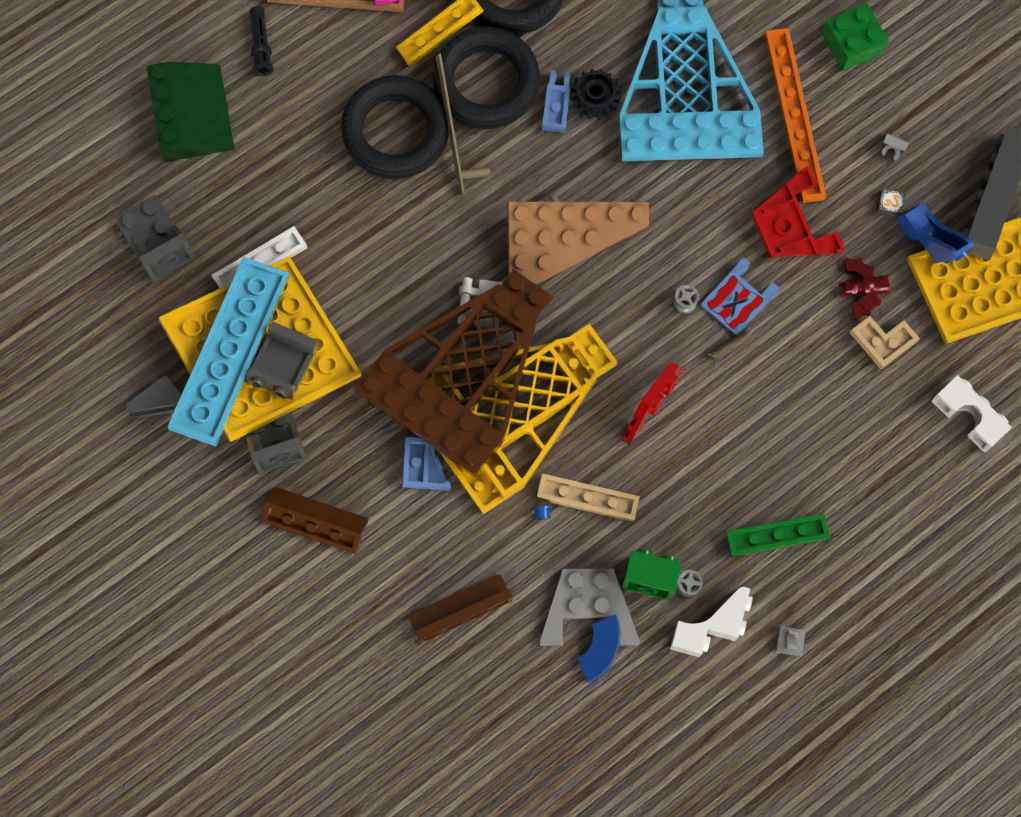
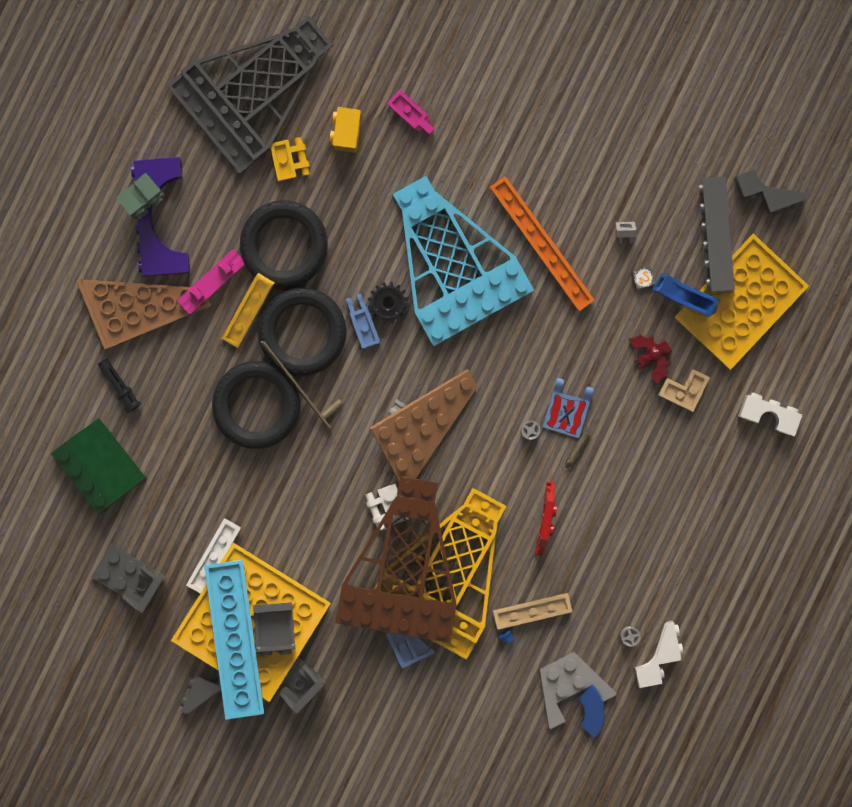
camera: 25 degrees left, 15 degrees up
(314, 520) = (353, 720): reddish brown panel -> none
(460, 608) = (484, 731): reddish brown panel -> none
(651, 574) = (603, 646): green brick -> none
(777, 535) = (674, 571): green plate -> none
(785, 227) = (574, 338): red wing -> none
(790, 641) = (717, 640): light grey tile -> none
(854, 36) = (557, 158): green brick -> none

